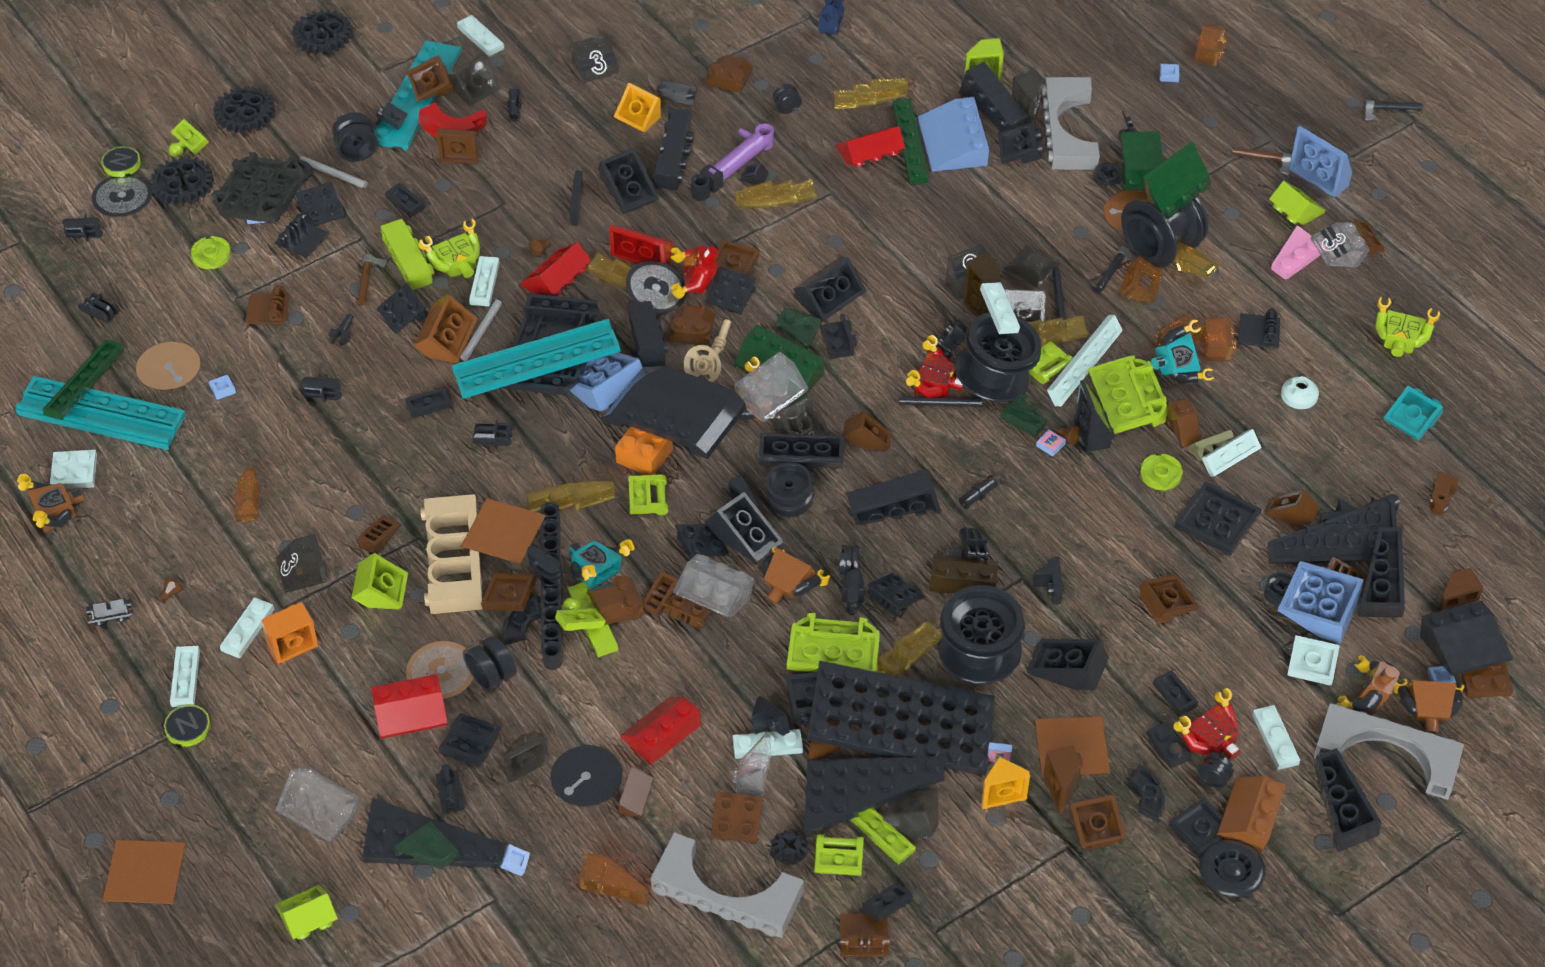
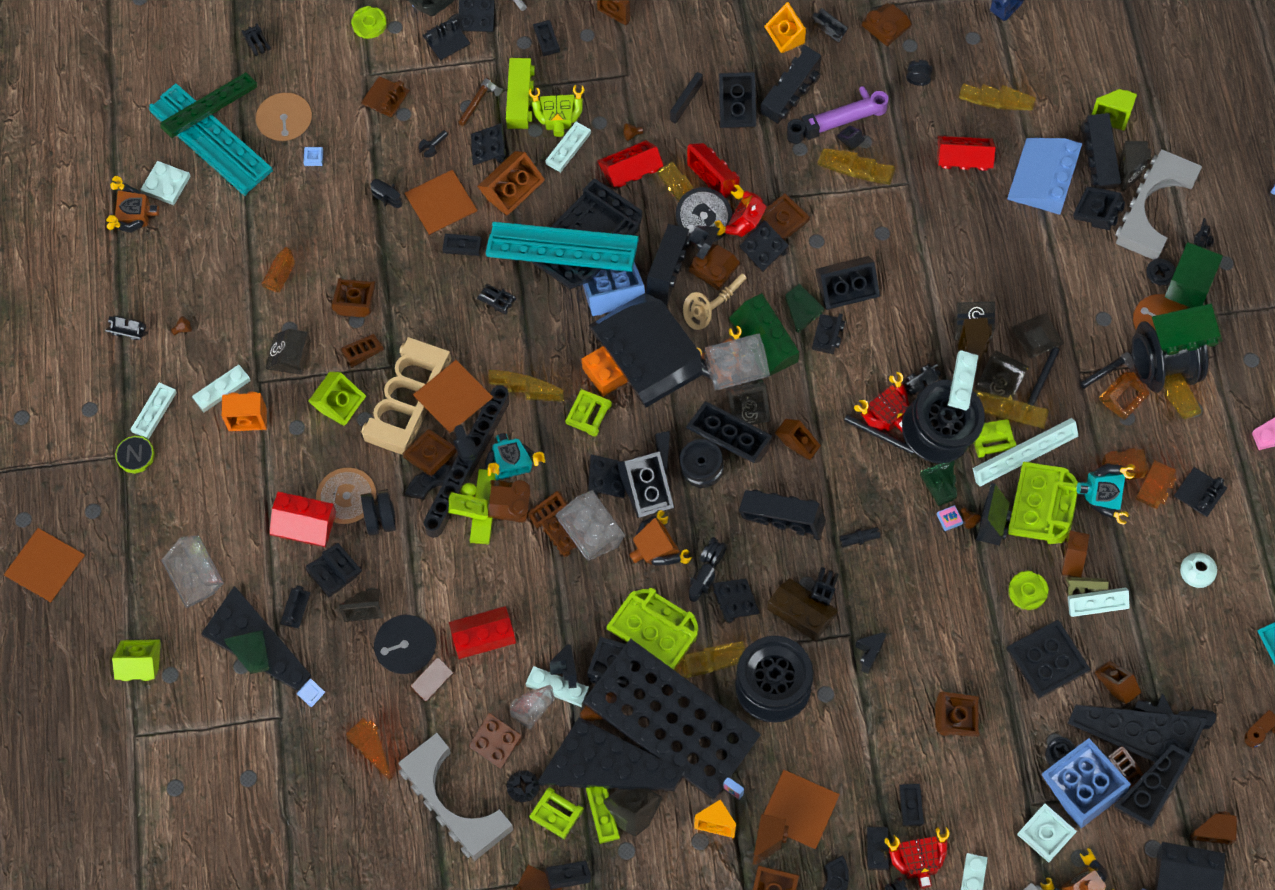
camera: 30 degrees right, 15 degrees up
(343, 490) = (353, 298): none -> reddish brown slope
(381, 377) = (440, 202): none -> dark orange piece
(481, 330) = (541, 192): light grey bar -> none
(671, 301) = (703, 237): none -> black slope
(913, 151) = (1004, 161): dark green plate -> none
(1070, 662) = (839, 734): black slope -> none

